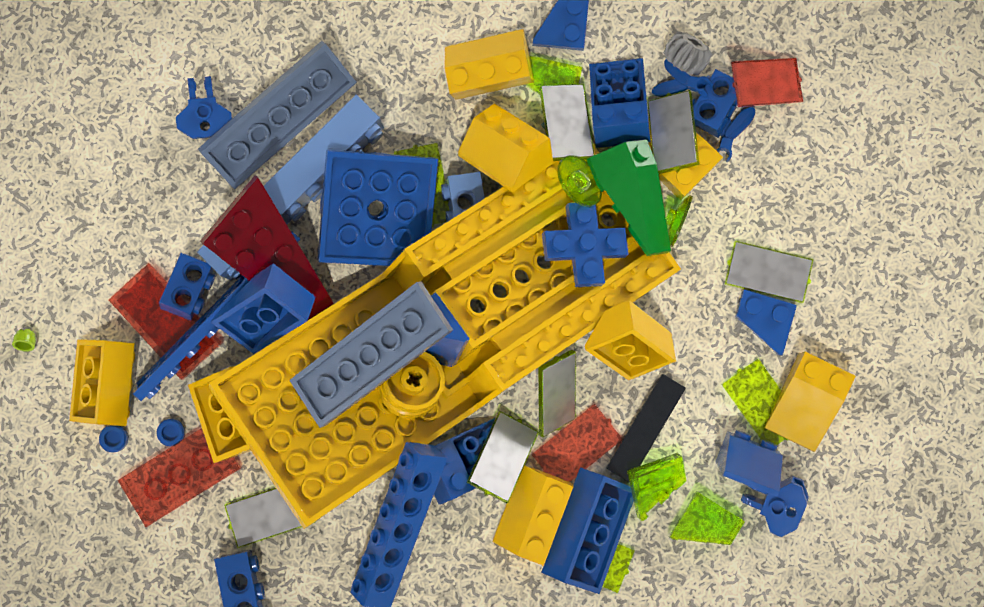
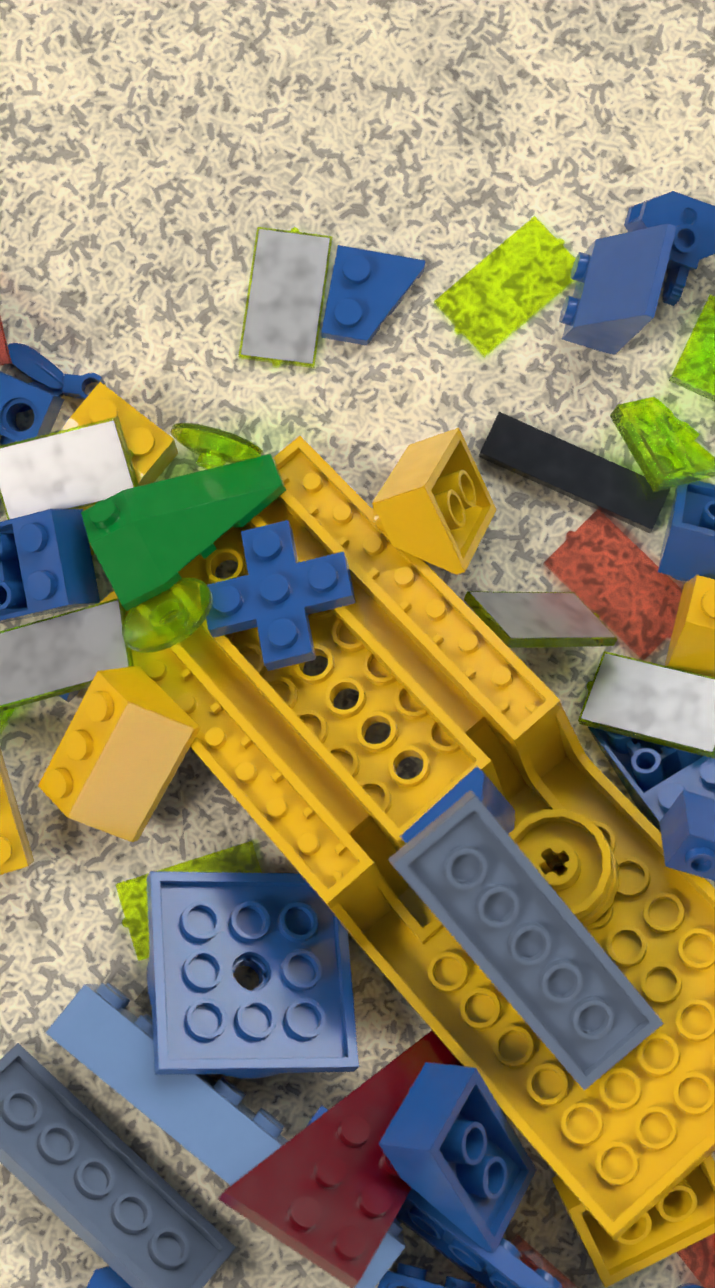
camera: 105 degrees left, 5 degrees down
(461, 185) = (190, 820): medium blue brick -> none
(809, 401) = (495, 209): yellow slope -> none

